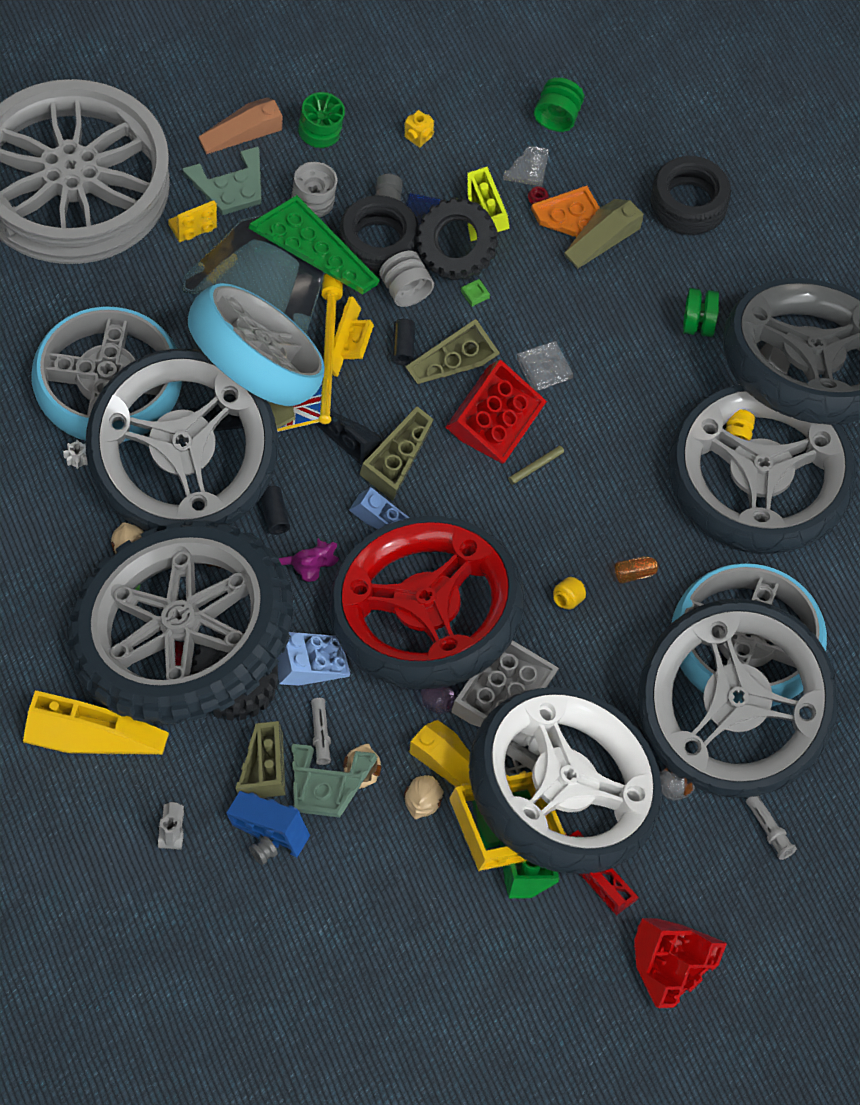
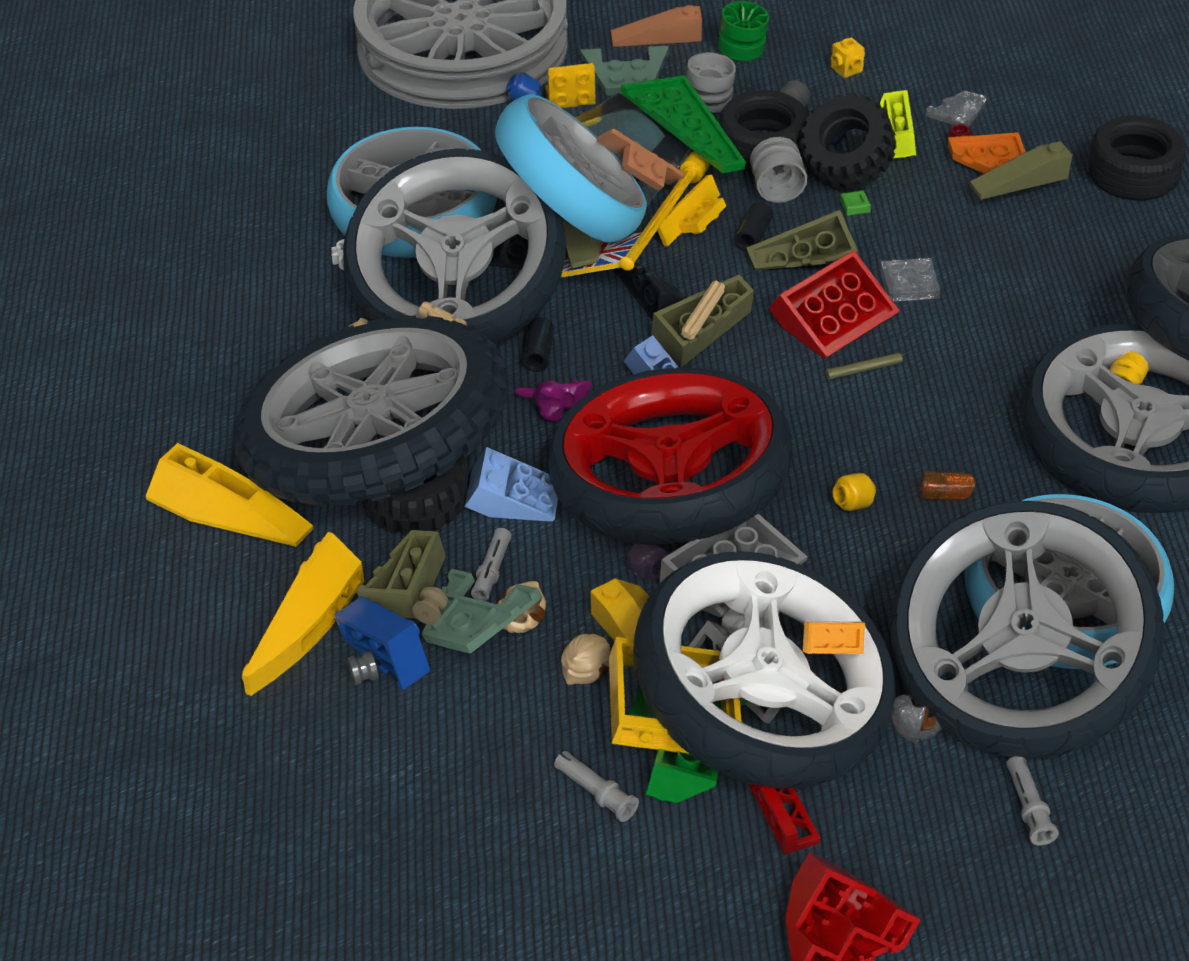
camera: 25 degrees right, 15 degrees down
(153, 231) = (522, 85): none -> blue head
(171, 827) = (258, 613): light grey piece -> none
(200, 515) = (428, 309): none -> tan axle
(207, 795) = (307, 612): none -> yellow wedge
(295, 780) = (430, 604): none -> dark tan wheel
(298, 308) = (640, 161): none -> nougat bracket
(402, 452) = (702, 310): none -> tan axle
(479, 903) = (606, 792): none -> light grey pin
(559, 104) = (1010, 59): green wheel -> none
(609, 745) = (833, 637): none -> light orange plate
(703, 313) = (1112, 257): green wheel -> none

